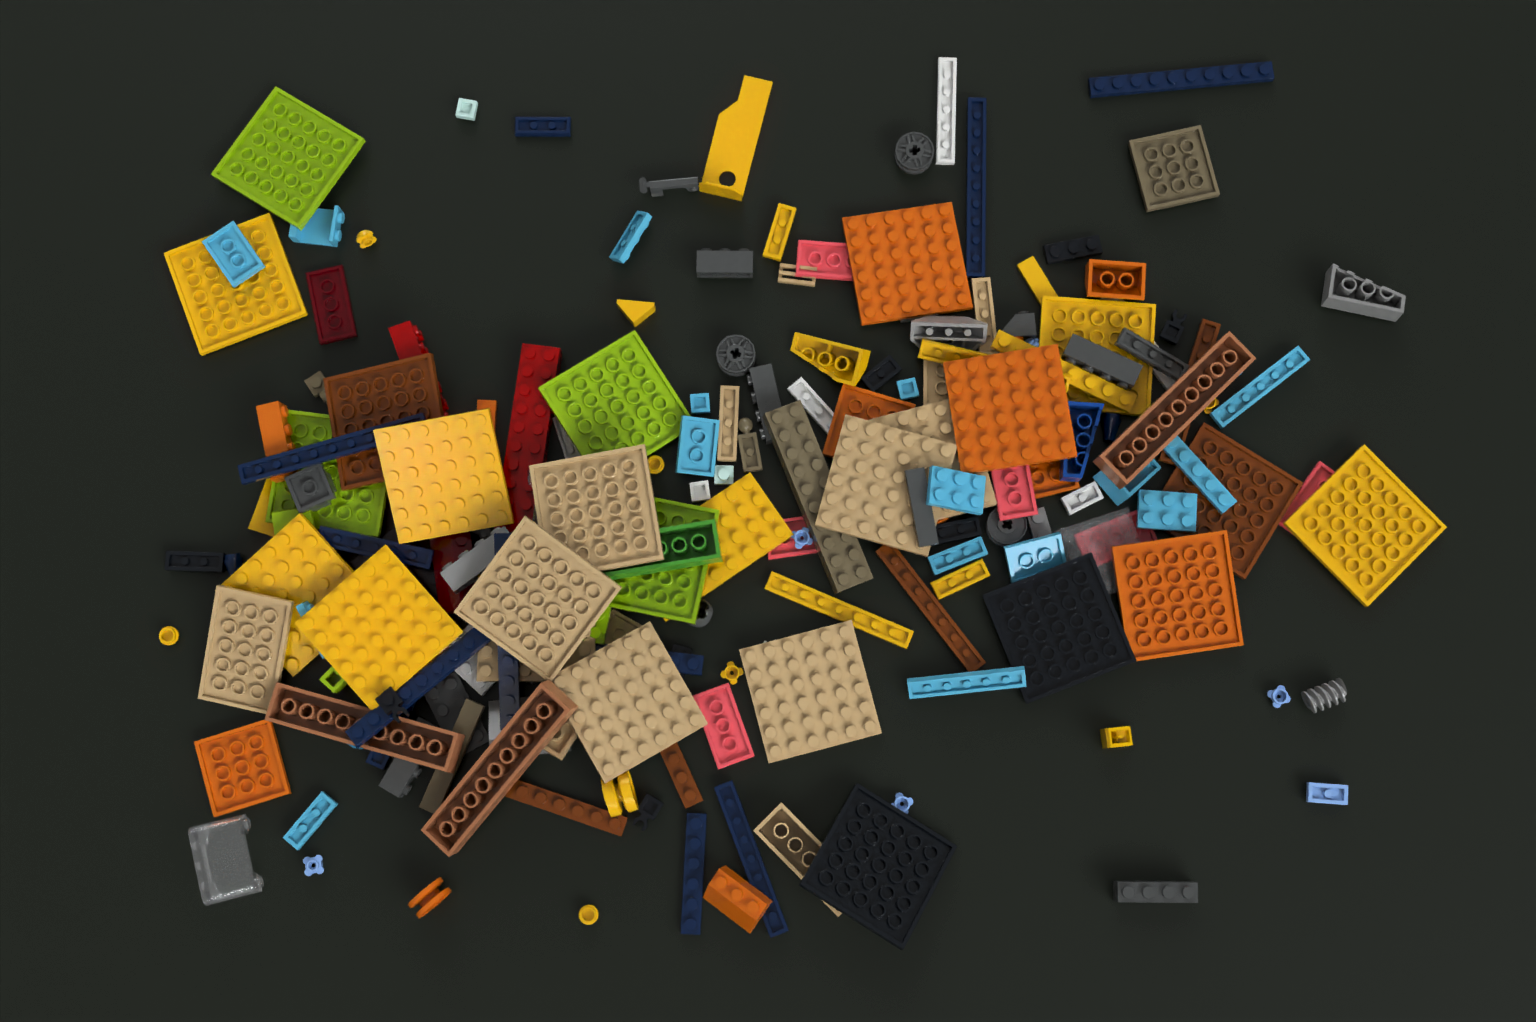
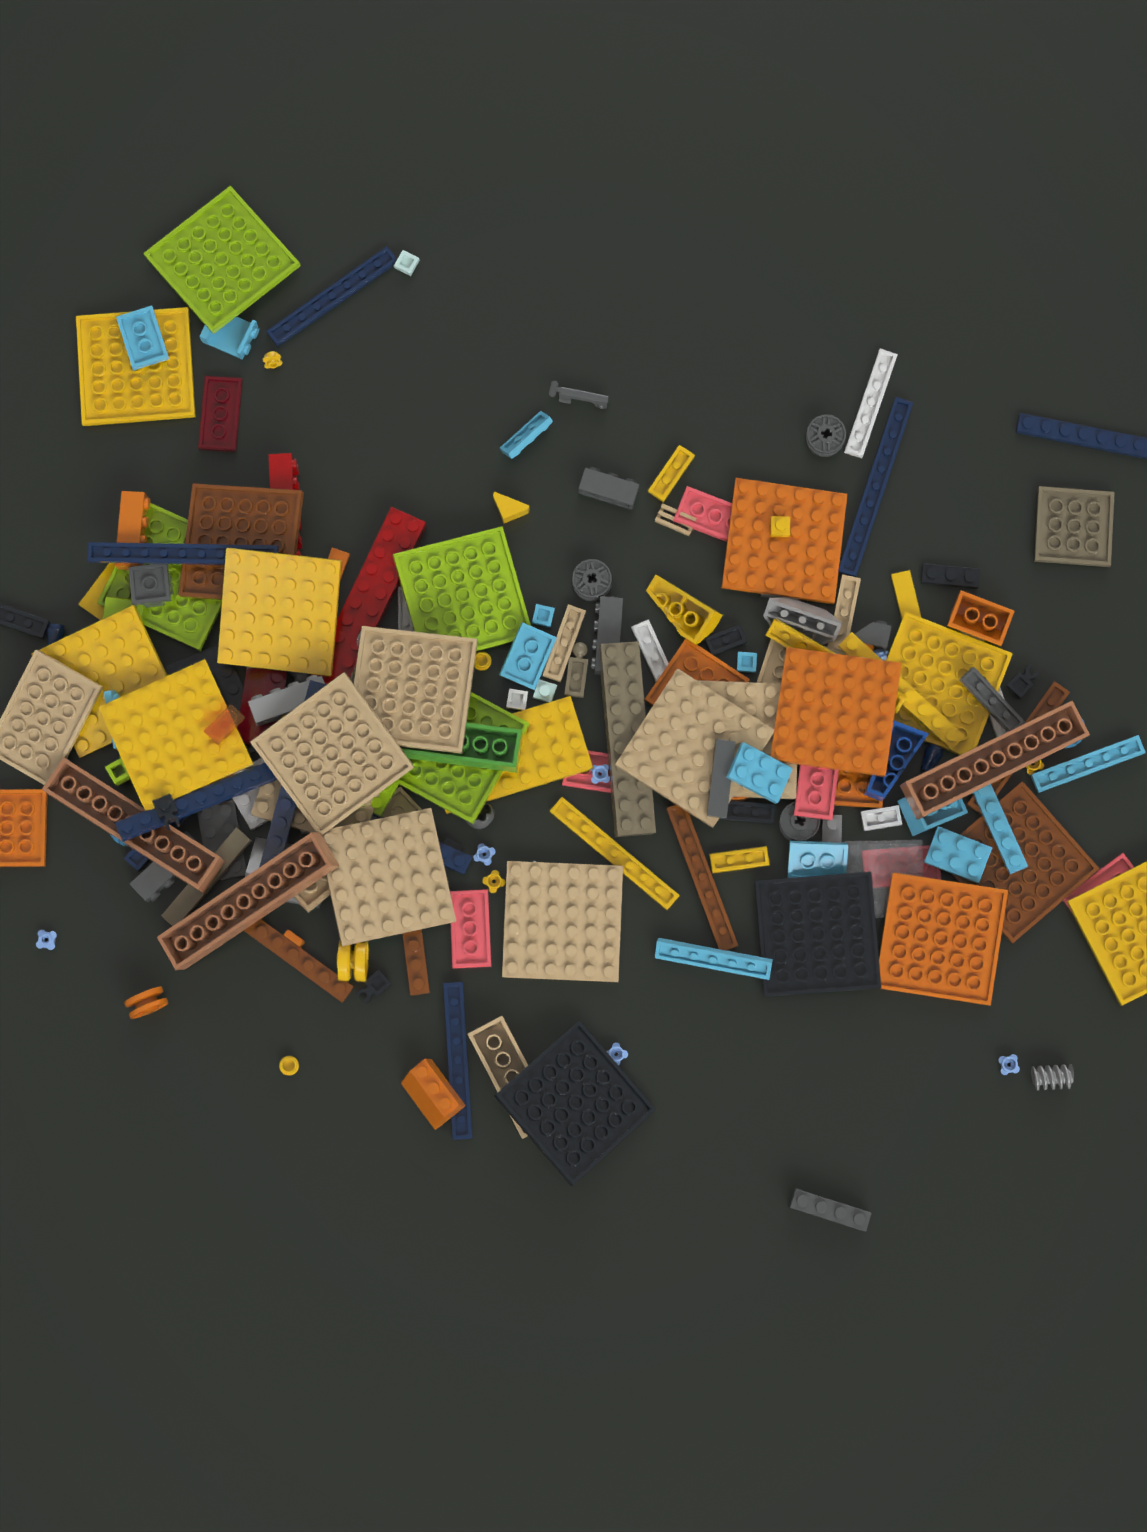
camera: 15 degrees right, 0 degrees up
(310, 820) = (56, 897): medium azure plate -> none
(316, 385) = (184, 488): dark tan plate -> none
(369, 545) = (189, 655): dark blue plate -> none
(405, 162) = (332, 296): none -> dark blue tile
(423, 602) = (224, 724): none -> clear orange plate
(543, 126) = (475, 301): dark blue tile -> none
(555, 788) = (294, 938): none -> orange tile
(693, 873) = (399, 1058): dark blue plate -> none
(718, 653) = (484, 849): none -> light blue plate
(736, 139) = (658, 370): yellow piece -> none
(899, 250) = (779, 526): none -> yellow plate
(957, 555) = (743, 836): medium azure plate -> none
(1102, 362) = (940, 693): dark grey brick -> none
(1116, 737) = (840, 1054): yellow slope -> none
(1326, 793) = (1024, 1170): light blue plate -> none

